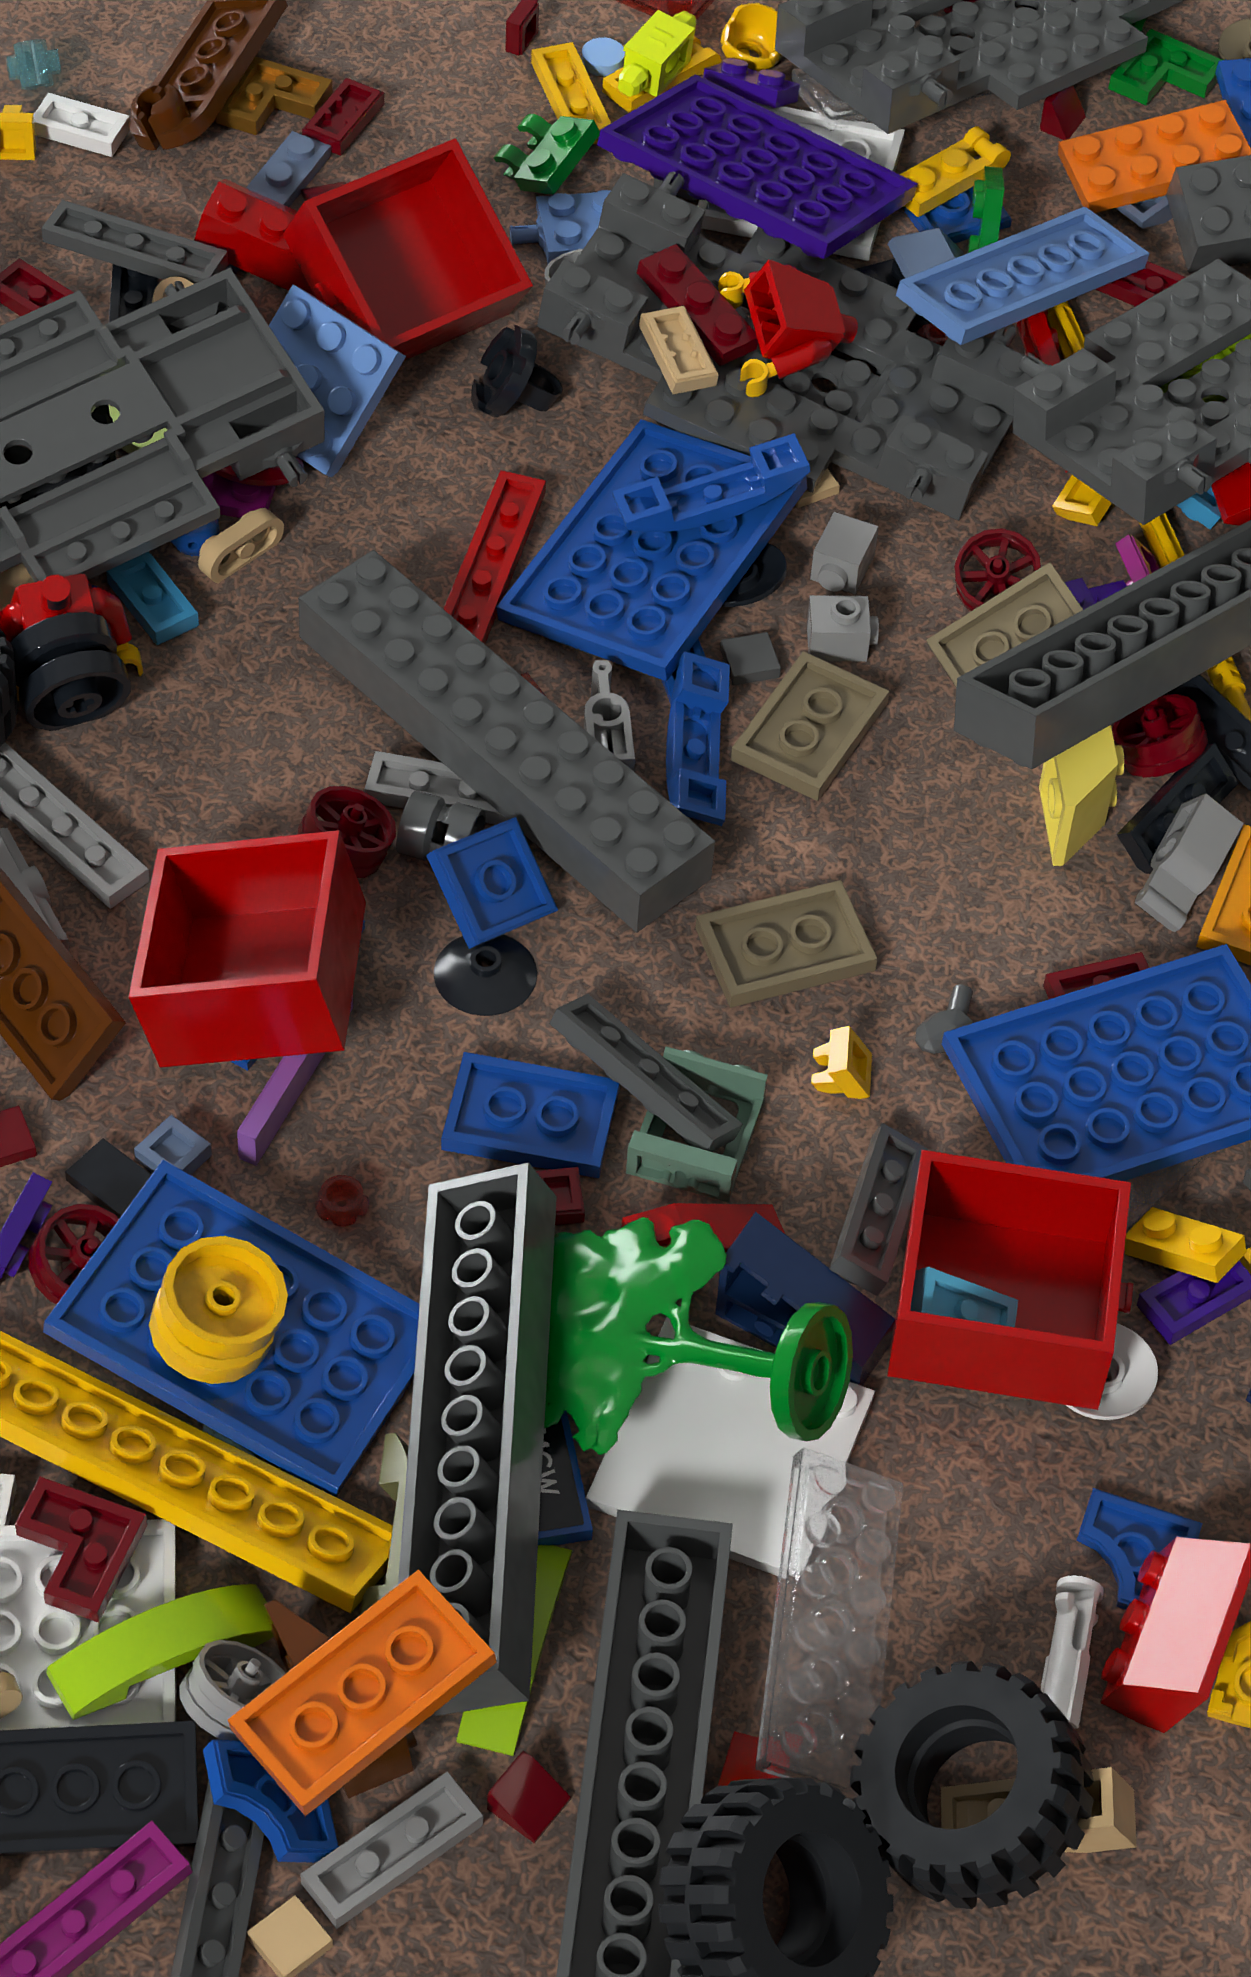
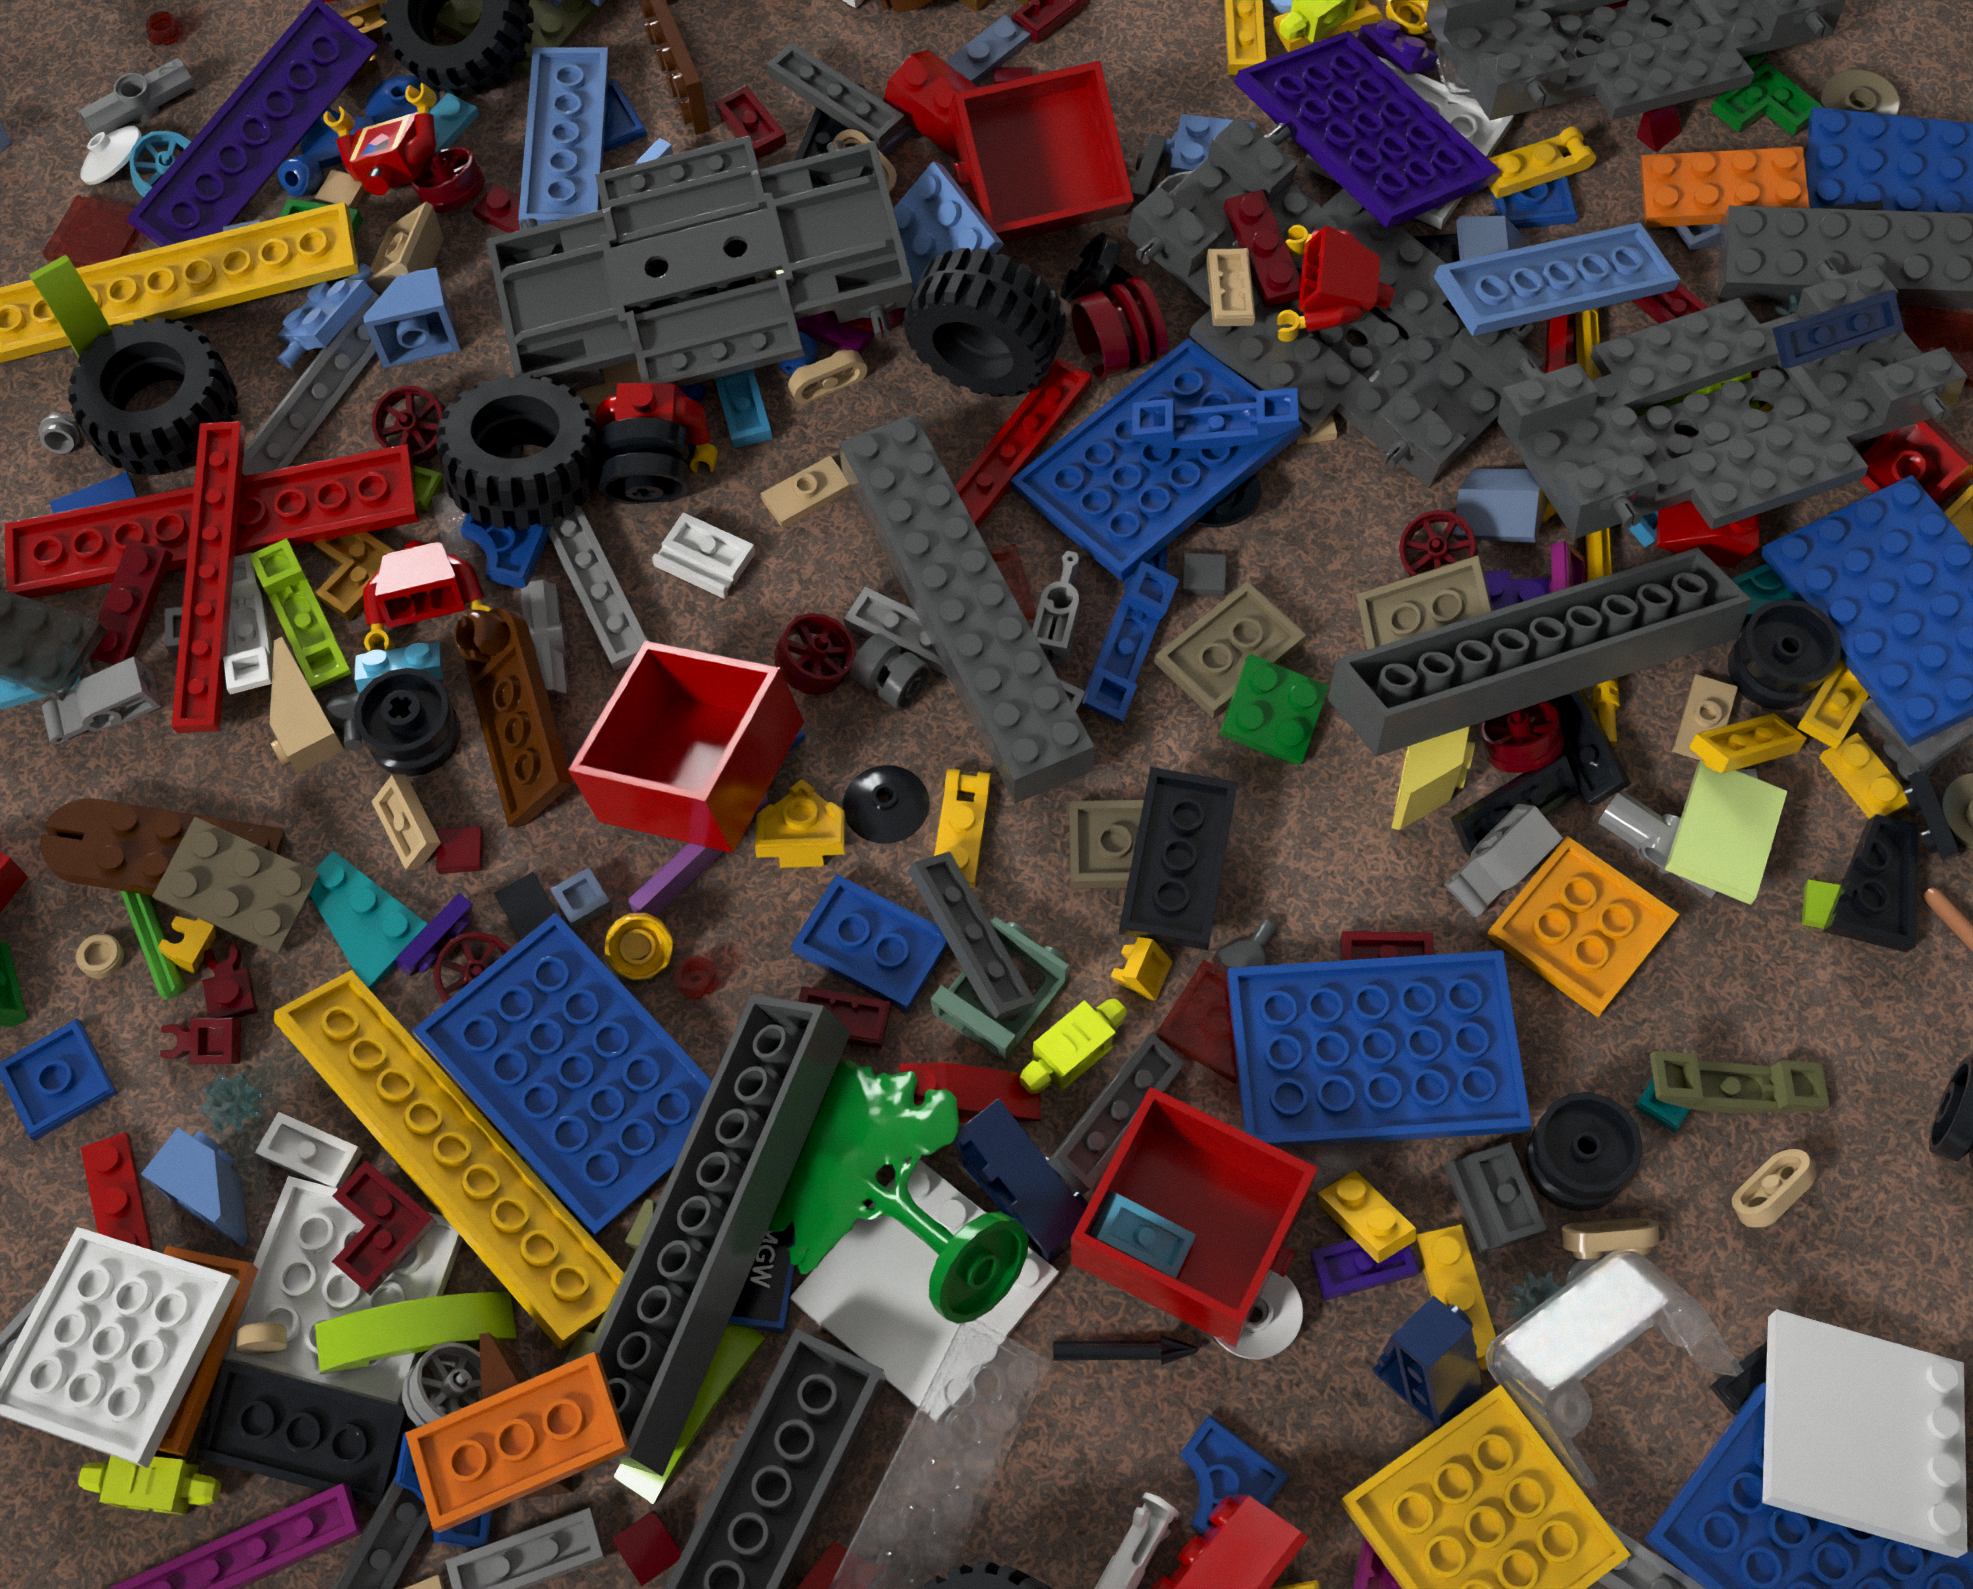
camera: 25 degrees right, 10 degrees up
(170, 762) = (704, 555): none -> white plate
(218, 1309) = (568, 1058): yellow wheel -> none
(261, 671) = (806, 491): none -> tan plate
(265, 1170) = (634, 938): none -> yellow hair
(403, 1018) = (800, 829): none -> yellow plate
(424, 400) = (985, 322): none -> black tyre
(492, 882) = (911, 730): blue tile -> none
(525, 249) = (1149, 167): none -> dark grey plate
(555, 152) = (1211, 76): green plate -> none
(565, 419) = (1121, 326): none -> dark red wheel
(583, 967) = (963, 821): none -> yellow plate
(800, 1160) = (1072, 1045): none -> neon yellow piece
(840, 628) = (1287, 567): light grey brick -> none
(844, 553) = (1315, 498): light grey brick -> none
(844, 940) = (1178, 858): none -> black plate
(883, 773) = (1273, 710): none -> green plate
(934, 1105) = (1202, 1022): none -> clear red plate
(987, 207) = (1552, 206): green plate -> none
(1020, 1438) = (1165, 1350): none -> black piece
(1051, 514) = (1501, 505): none -> sand blue slope

